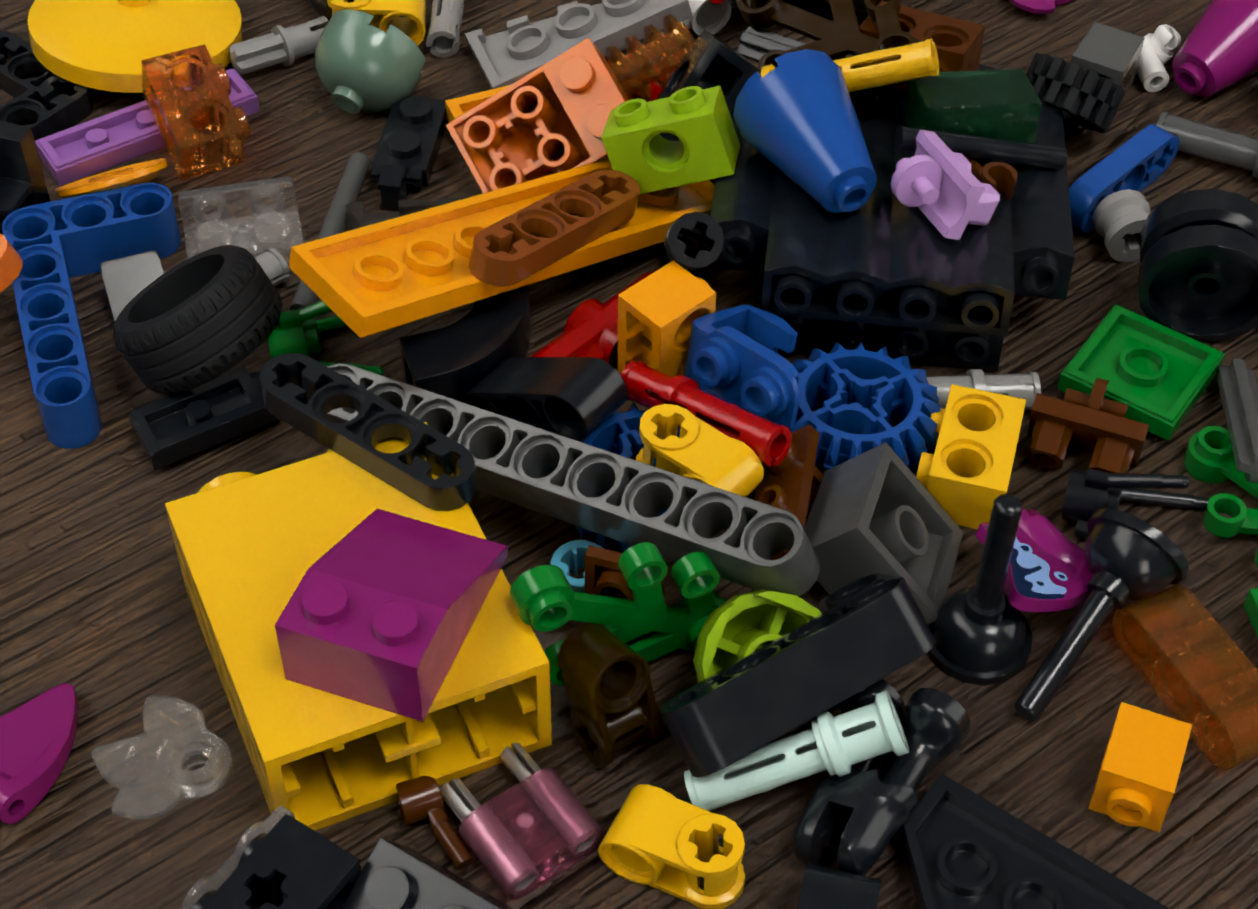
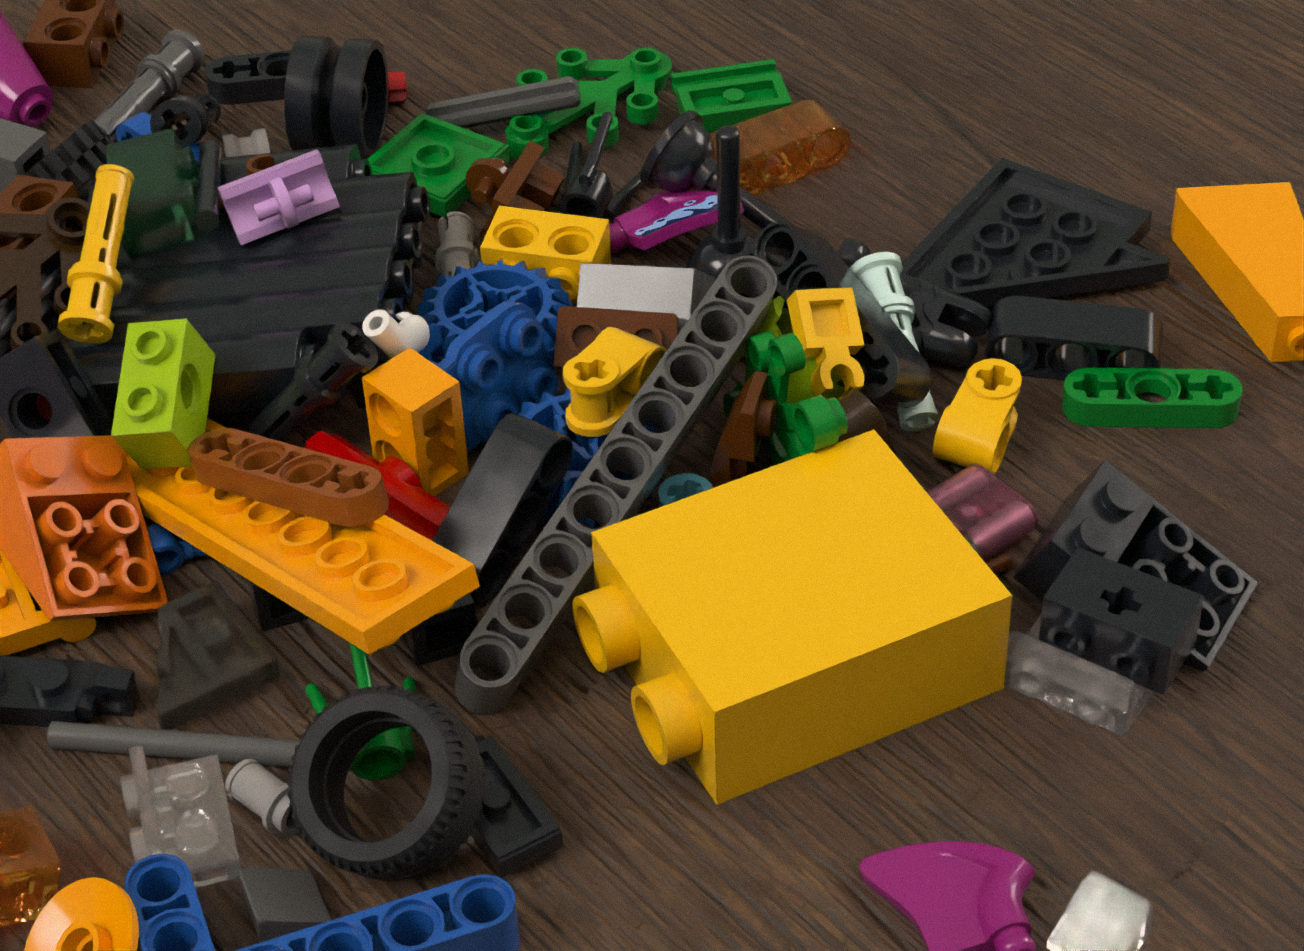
camera: 90 degrees left, 5 degrees down
(155, 765) = (940, 771): clear plate -> none
(374, 422) = (610, 554): black beam -> none
(387, 612) = (847, 507): magenta slope -> none
(654, 388) = (530, 389): red pin -> none
(724, 635) = (830, 332): none -> yellow plate
(739, 295) = (395, 337): none -> white arm
(809, 129) = (208, 265): blue cone -> none
(1139, 151) = (190, 109): none -> black pin
(1140, 767) = (864, 183): light orange brick -> none

